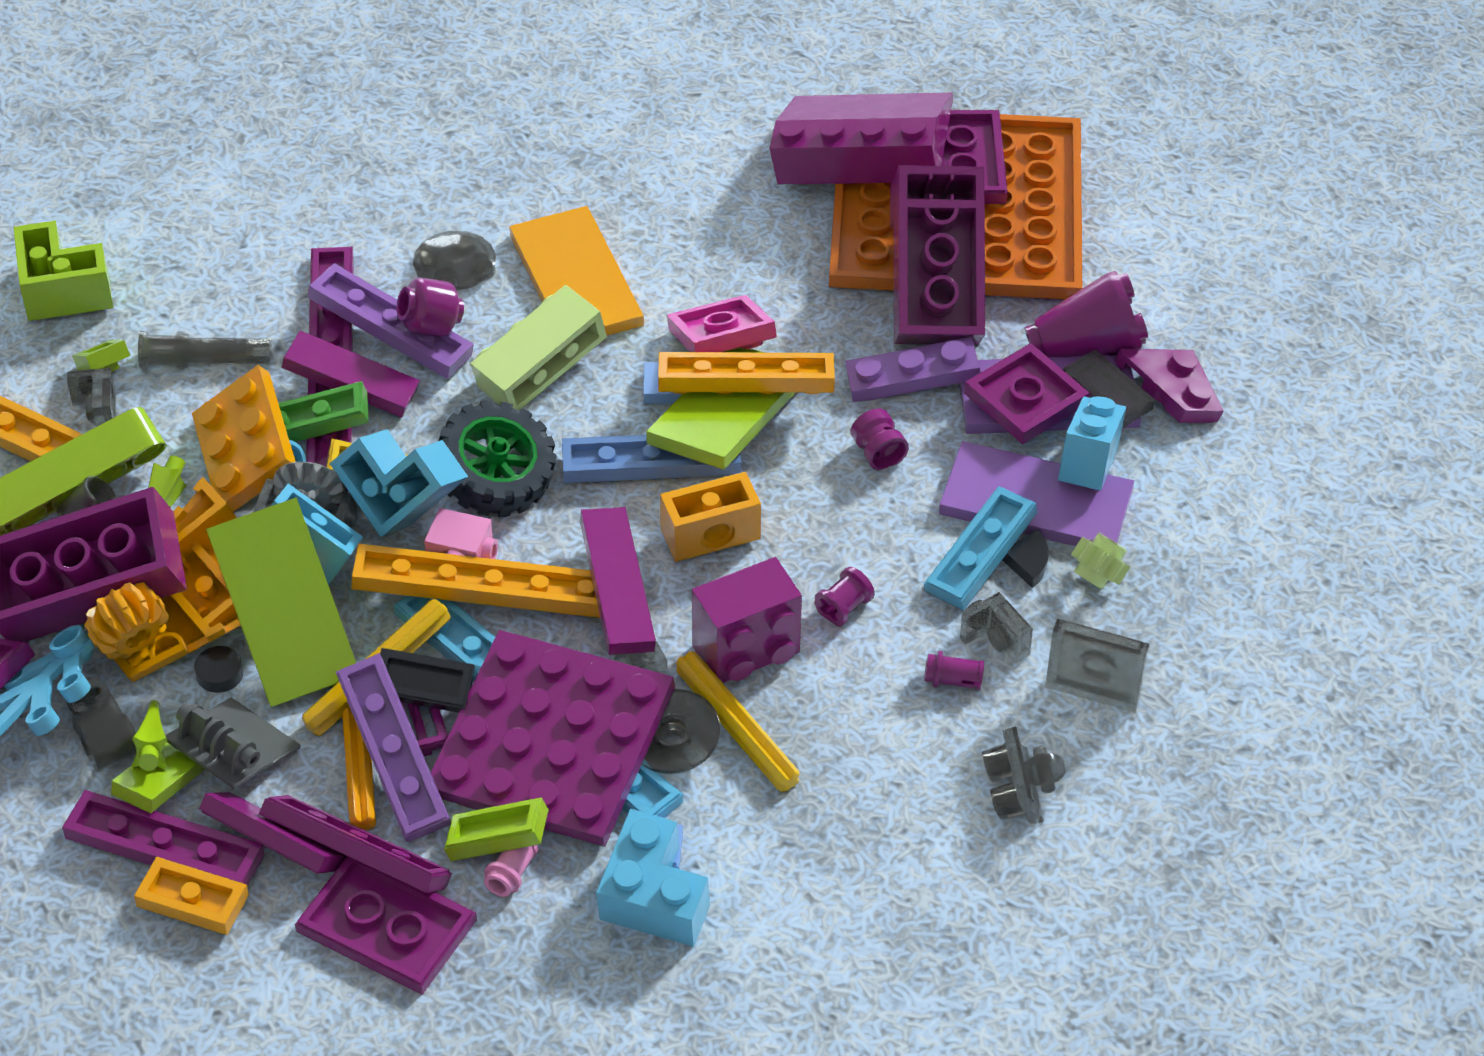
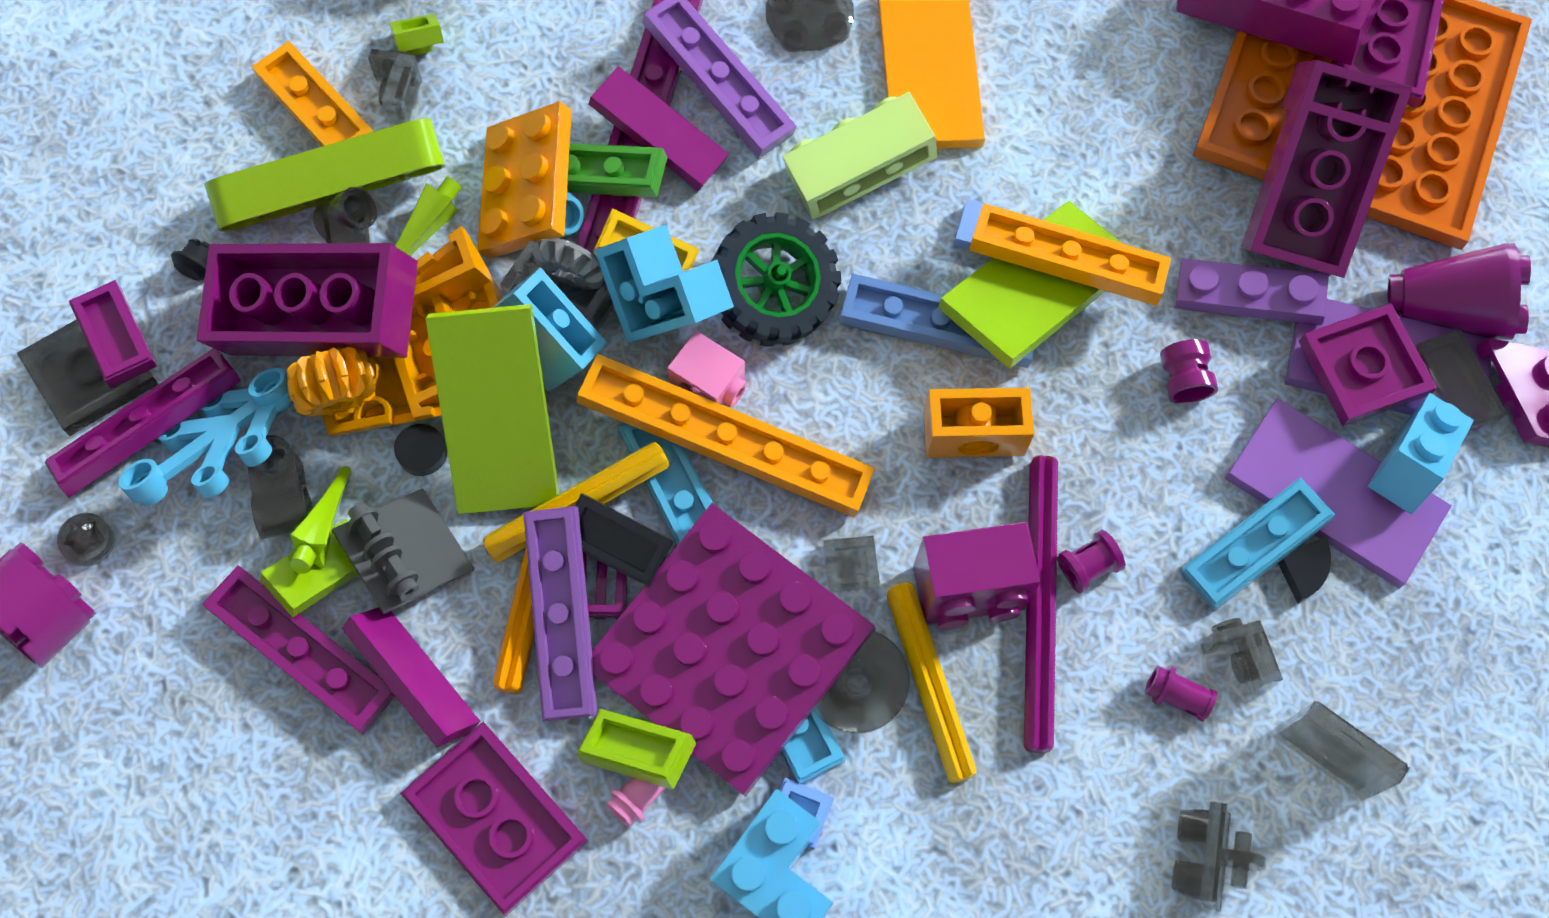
camera: 15 degrees right, 20 degrees up
(182, 350) = (501, 48): clear smoke pin -> none
(191, 895) = (307, 725): light orange plate -> none
(356, 843) = (489, 717): magenta tile -> none
(429, 307) = (760, 76): magenta head -> none
(617, 581) = (854, 477): magenta tile -> none
(722, 326) = (1062, 180): dark pink plate -> none
(816, 649) = (1041, 609): none -> magenta axle
(1100, 560) = (1383, 603): yellowish green gear -> none

